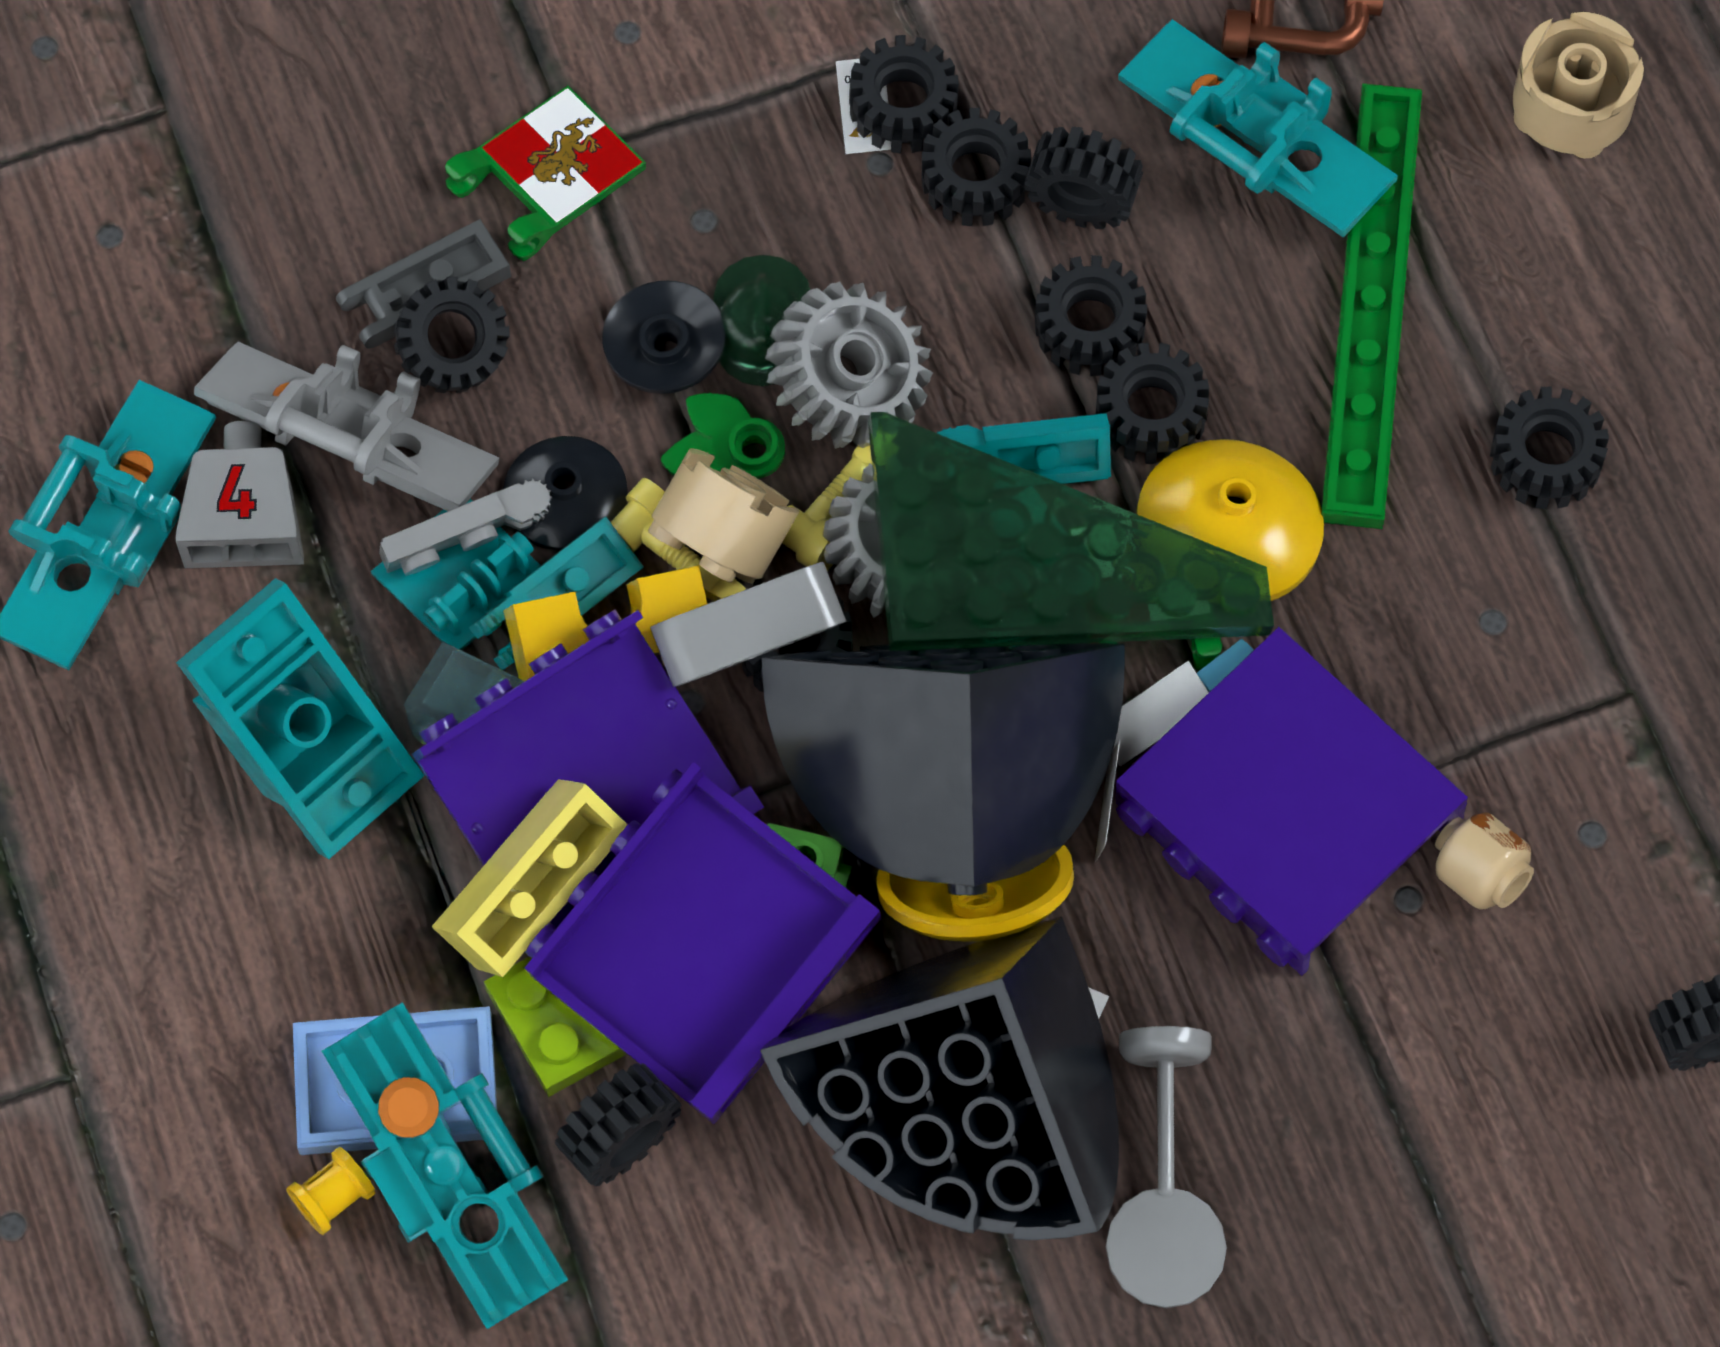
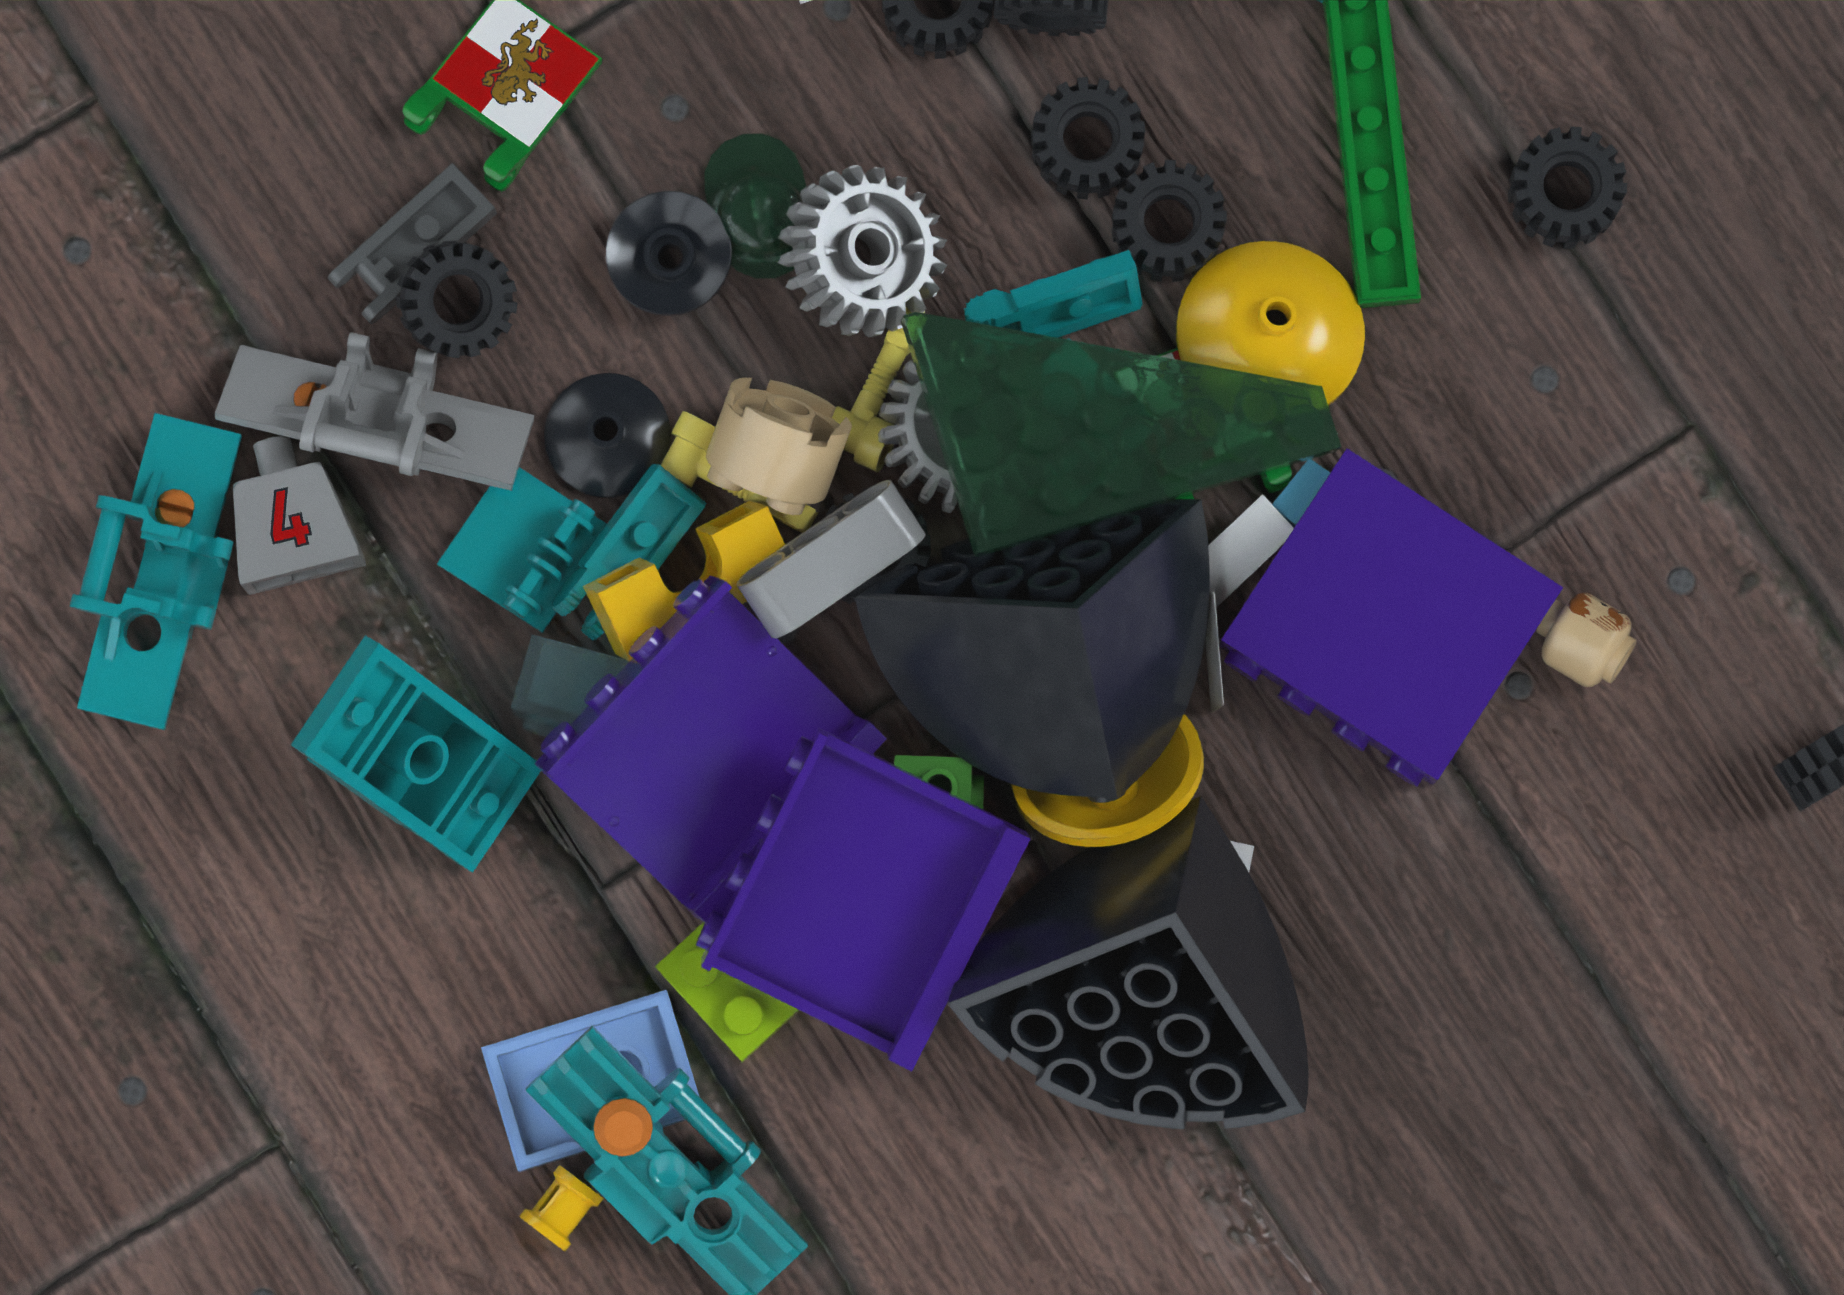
camera: 15 degrees left, 15 degrees up
(469, 525) = (526, 503): light grey hinge -> none
(530, 877) = (681, 866): light yellow brick -> none
(618, 1124) = (822, 1089): black tyre -> none
(724, 431) = (748, 348): green plate -> none
(1166, 1240) = (1360, 1078): light grey piece -> none

